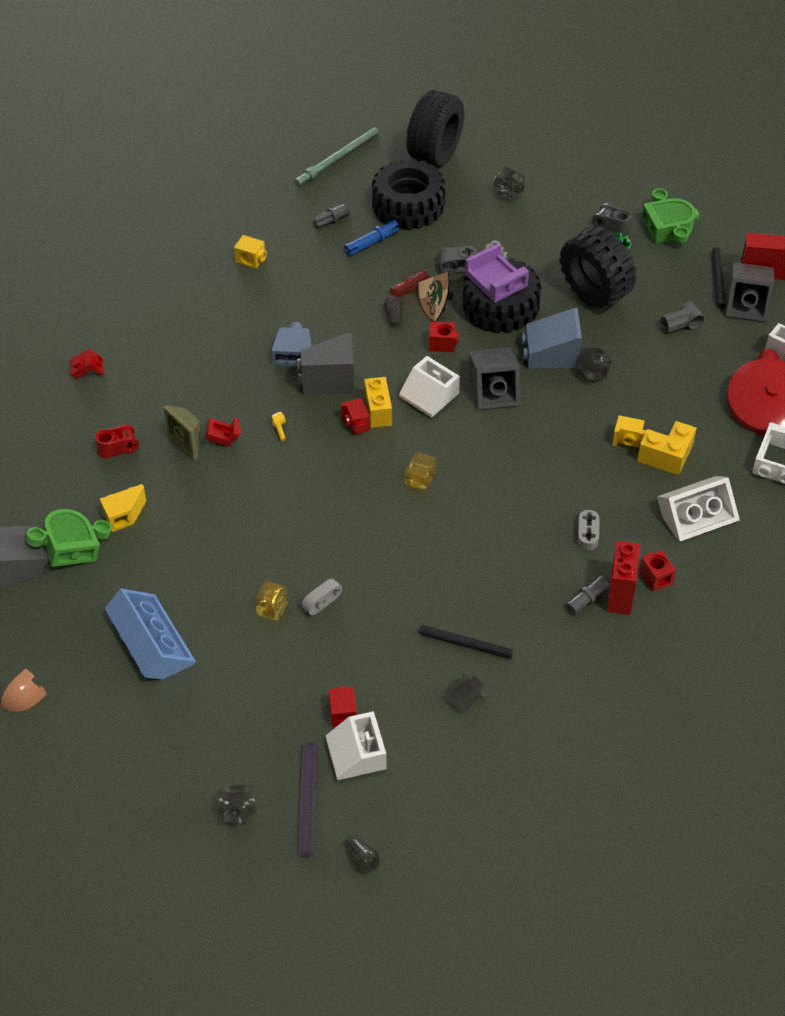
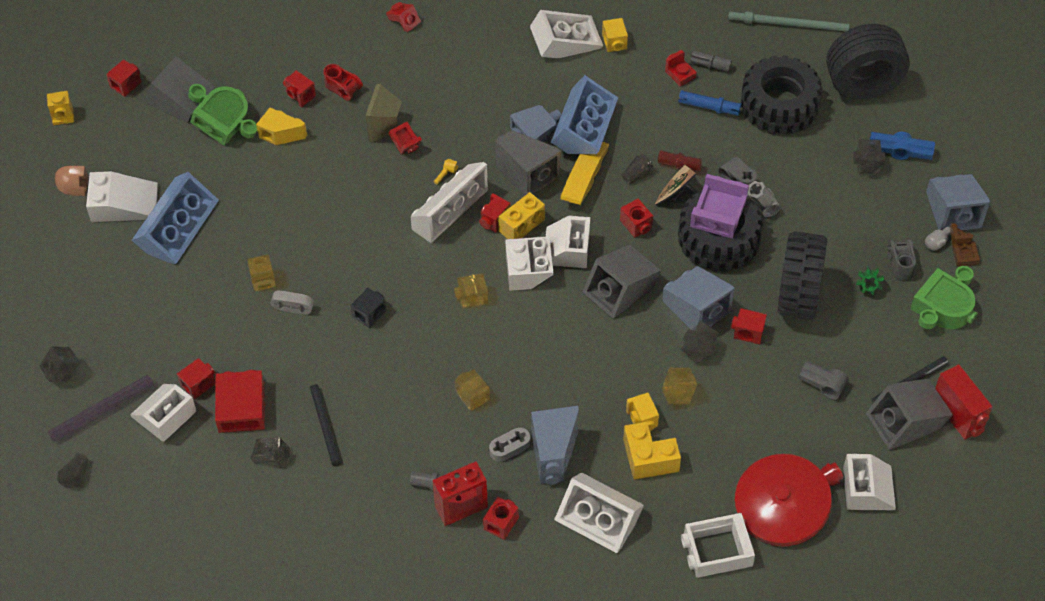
camera: 55 degrees right, 5 degrees up
(82, 665) = (119, 197): none -> white slope
(92, 471) = (299, 88): none -> red brick
(216, 280) = (564, 34): none -> white slope
(318, 310) = (584, 118): none -> medium blue slope
(318, 435) = (450, 201): none -> white slope
(320, 237) = (679, 69): none -> red bracket
(370, 343) = (582, 176): none -> yellow slope
(376, 547) = (368, 307): none -> black brick
(394, 686) = (240, 401): none -> red brick
(426, 421) = (528, 262): none -> white slope
(515, 161) = (902, 145): none -> blue piece
(517, 522) = (472, 389): none -> clear yellow brick
(592, 163) = (957, 201): none -> sand blue slope
(601, 330) = (749, 326): none -> red brick
(611, 194) = (937, 239): none -> light grey cylinder
(620, 496) = (553, 441): none -> sand blue slope
(630, 185) = (963, 247): none -> reddish brown slope
(630, 390) = (679, 385): none -> clear yellow brick

